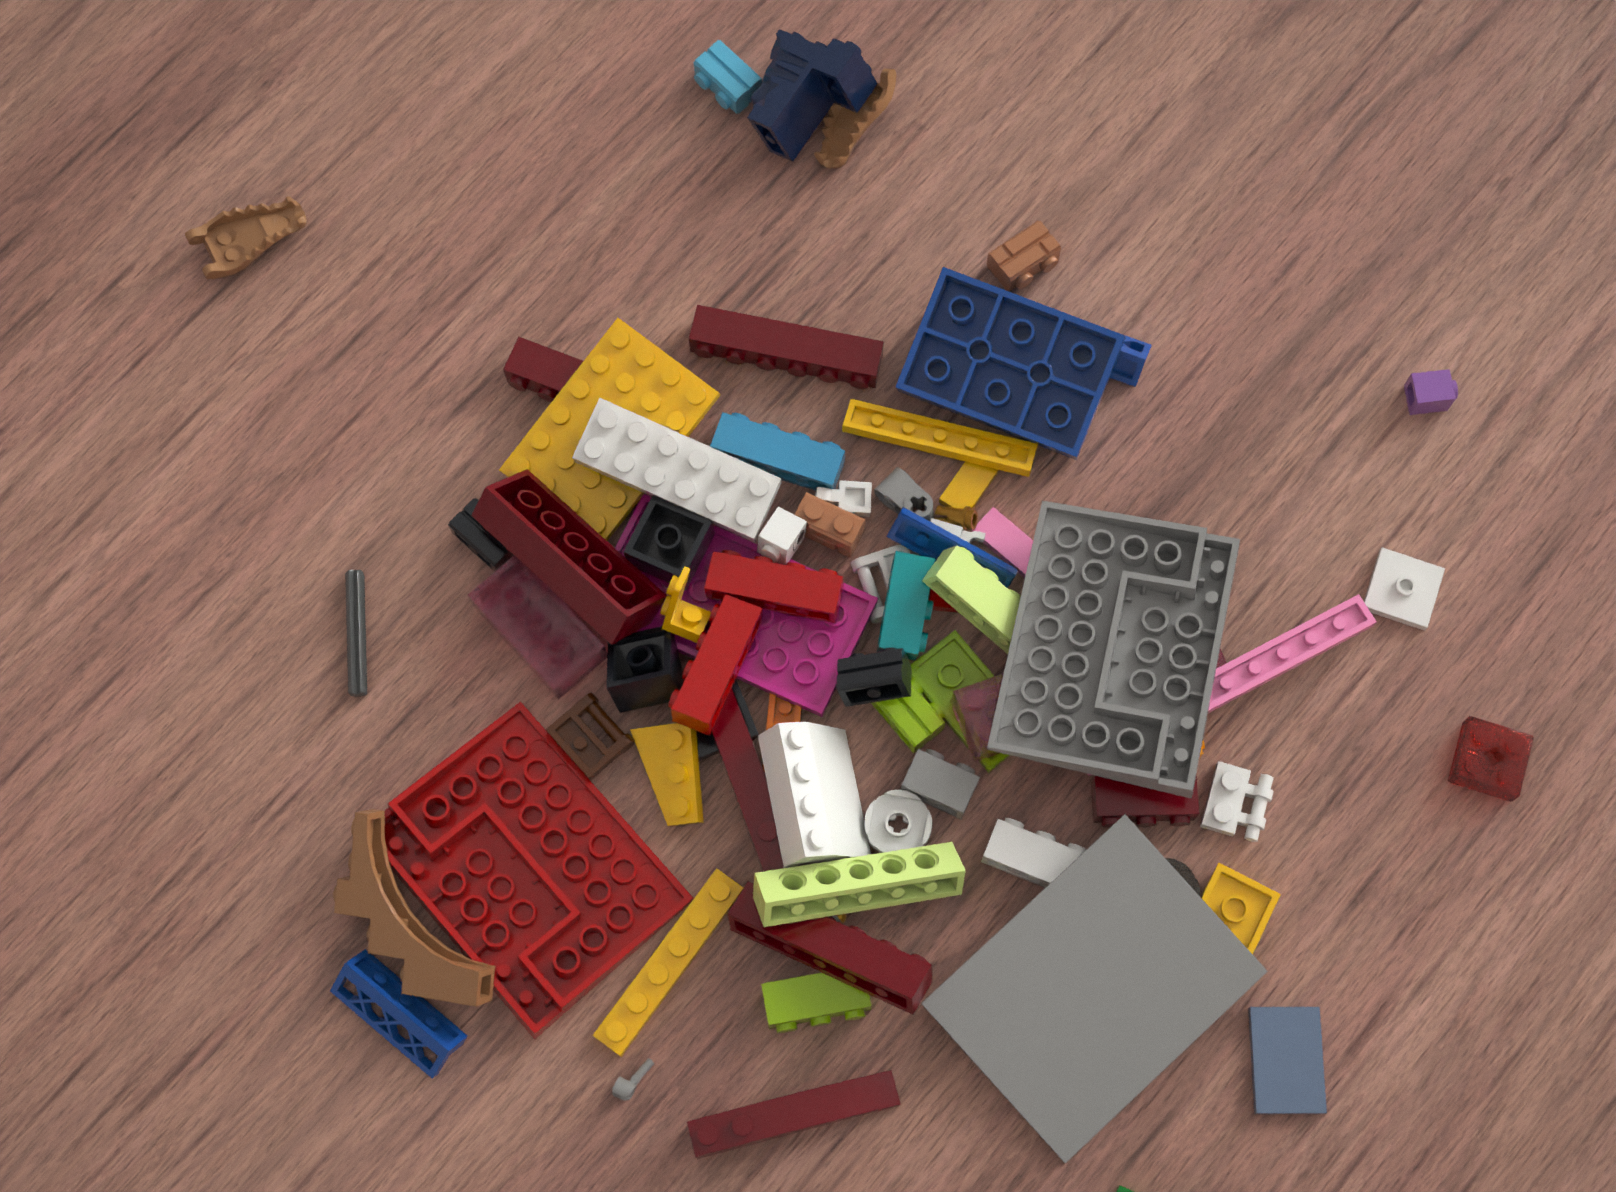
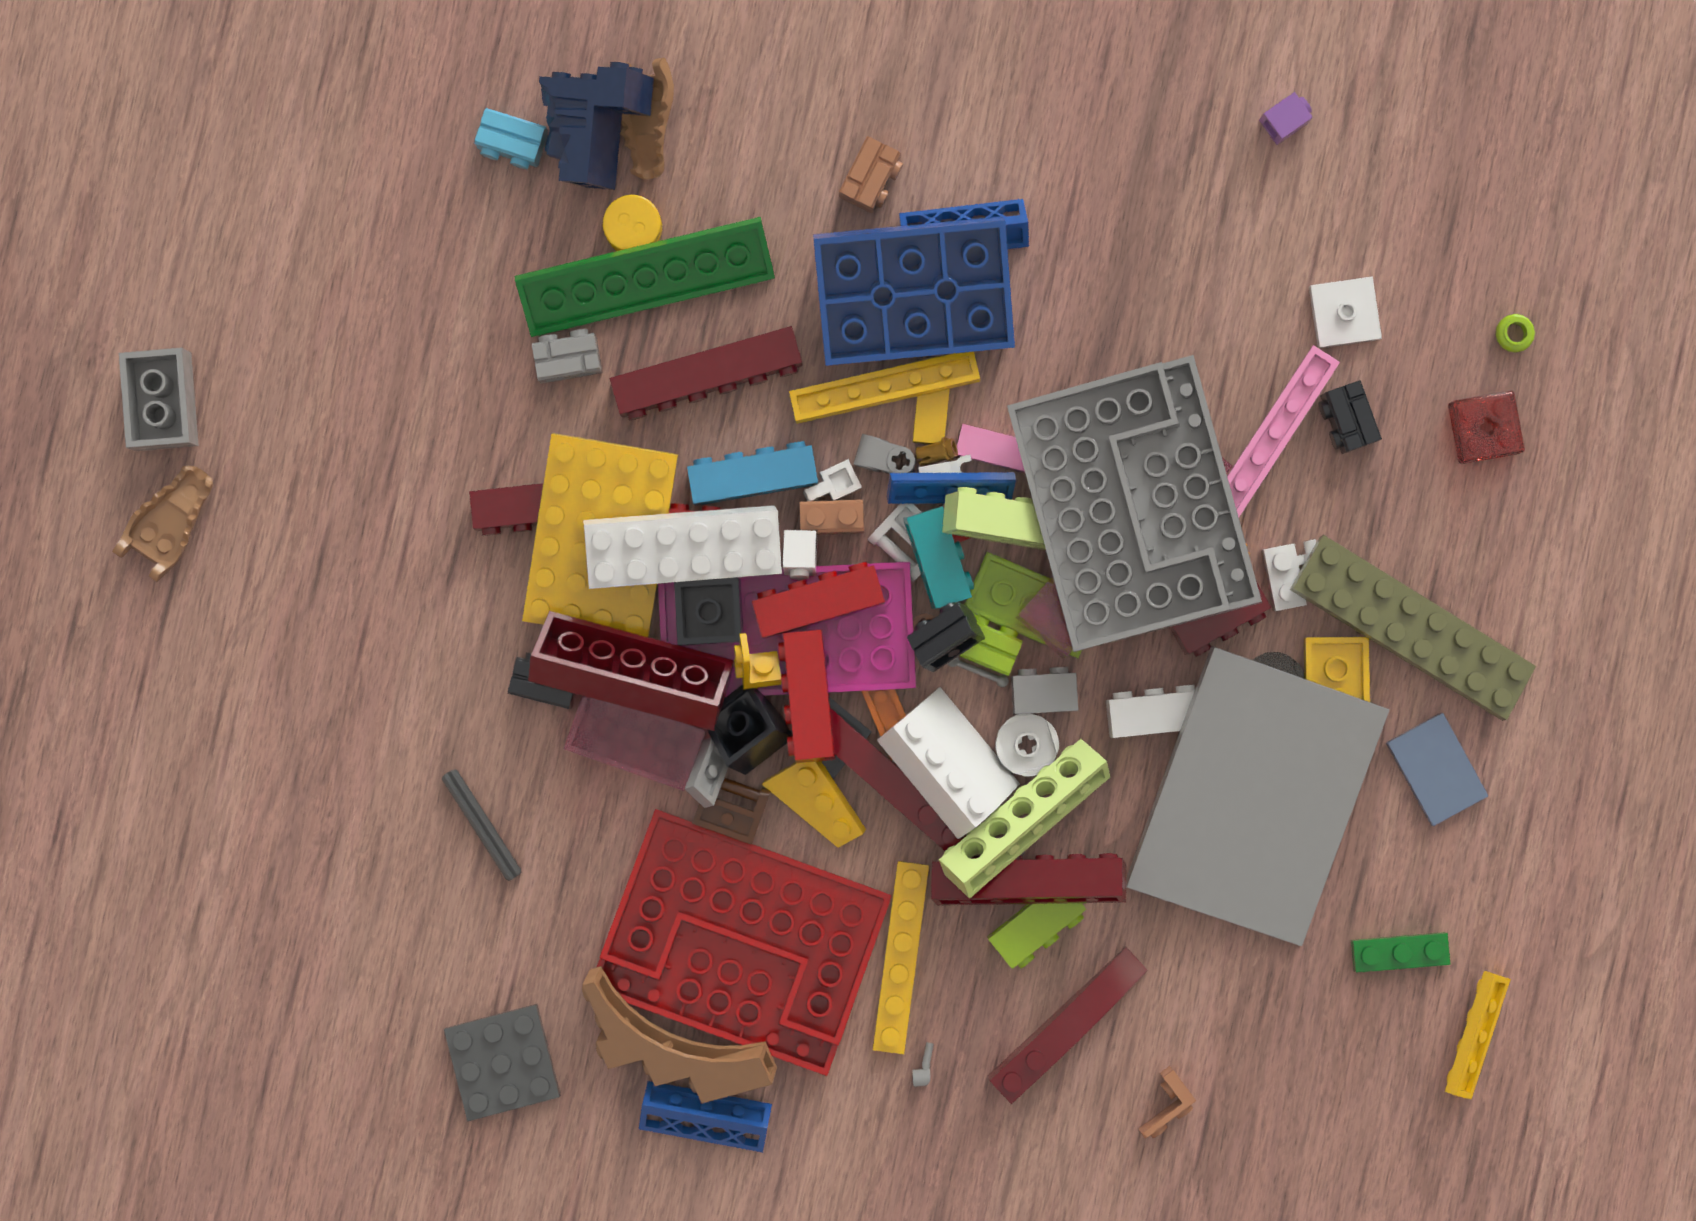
camera: 30 degrees left, 15 degrees up
(243, 858) = (502, 1062): none -> dark grey plate
(302, 132) = (158, 399): none -> light grey brick
(583, 688) = (706, 774): none -> light grey plate
(670, 273) = (566, 357): none -> light grey brick
(778, 240) = (645, 277): none -> green plate
(791, 196) = (631, 222): none -> yellow head
(871, 714) = (1002, 680): none -> light grey hinge
(1330, 910) = (1413, 628): none -> olive plate
(1361, 682) = (1349, 417): none -> black brick
(1568, 679) = (1502, 336): none -> lime piece

